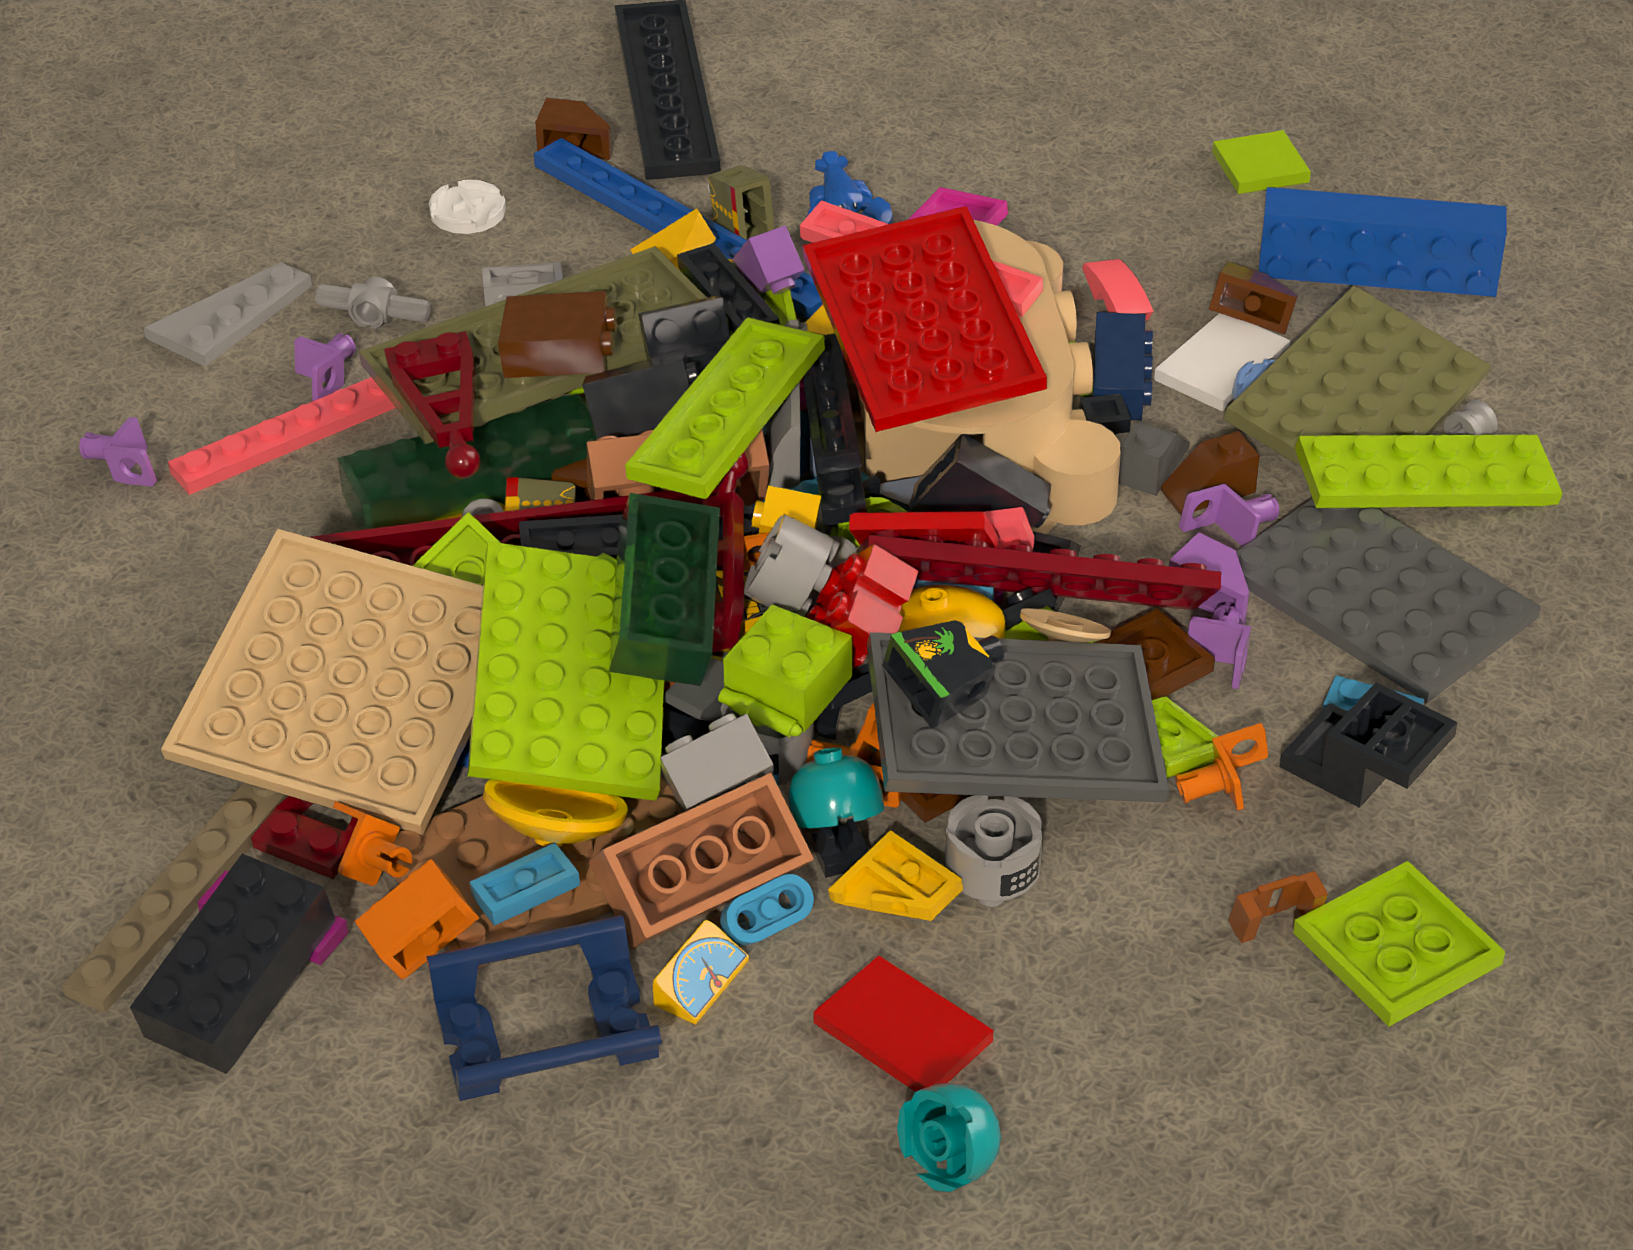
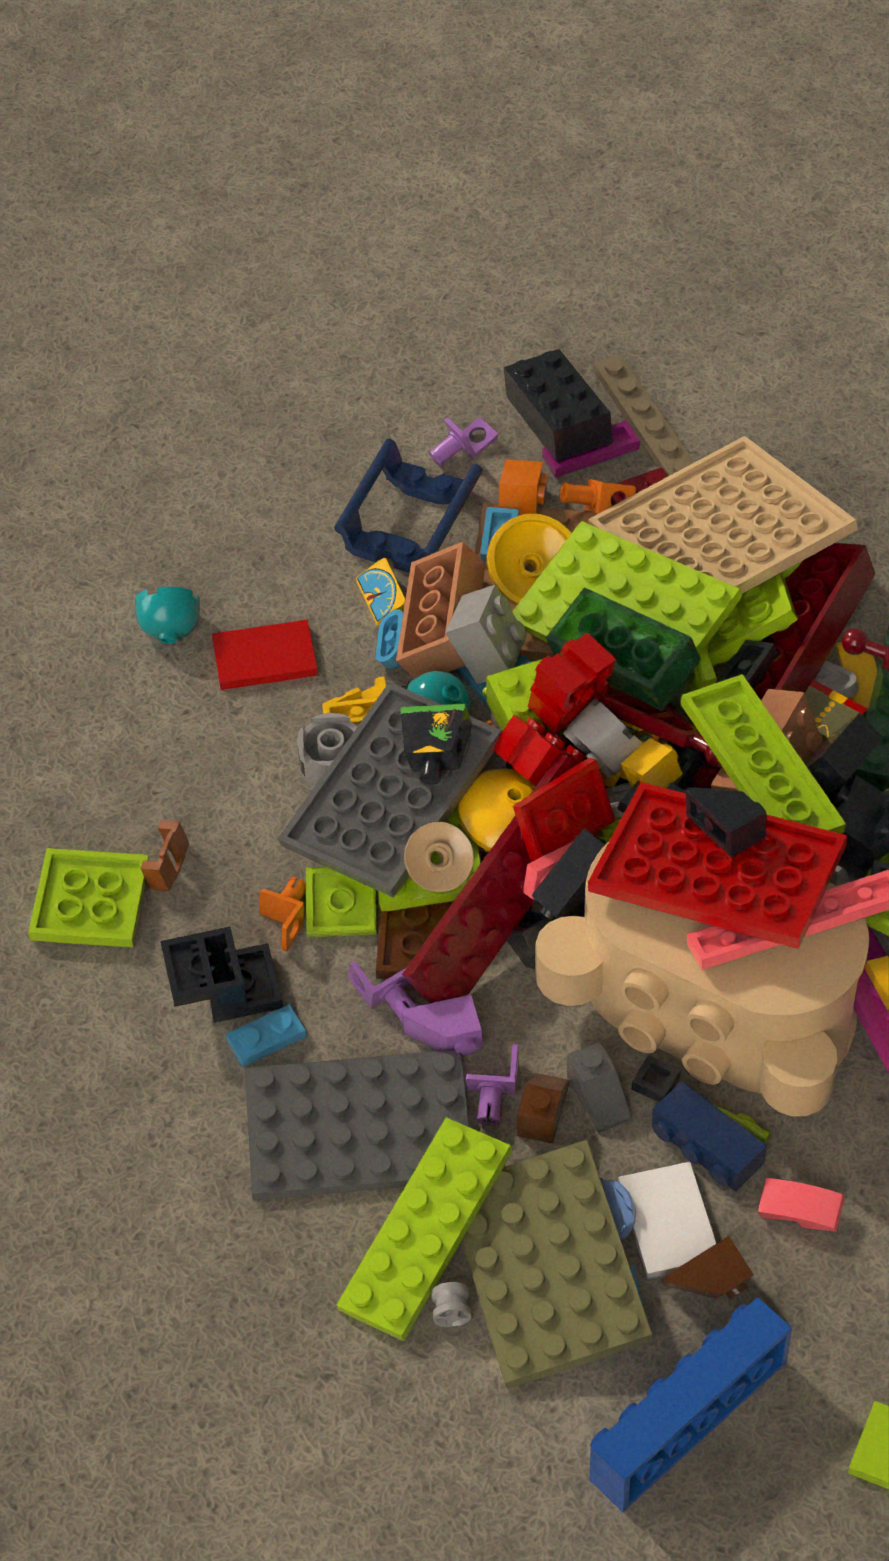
camera: 130 degrees right, 10 degrees up
(365, 1046) = (460, 440): none -> medium lavender bracket
(773, 571) = (570, 681): none -> red brick
(878, 304) = (727, 817): none -> black slope

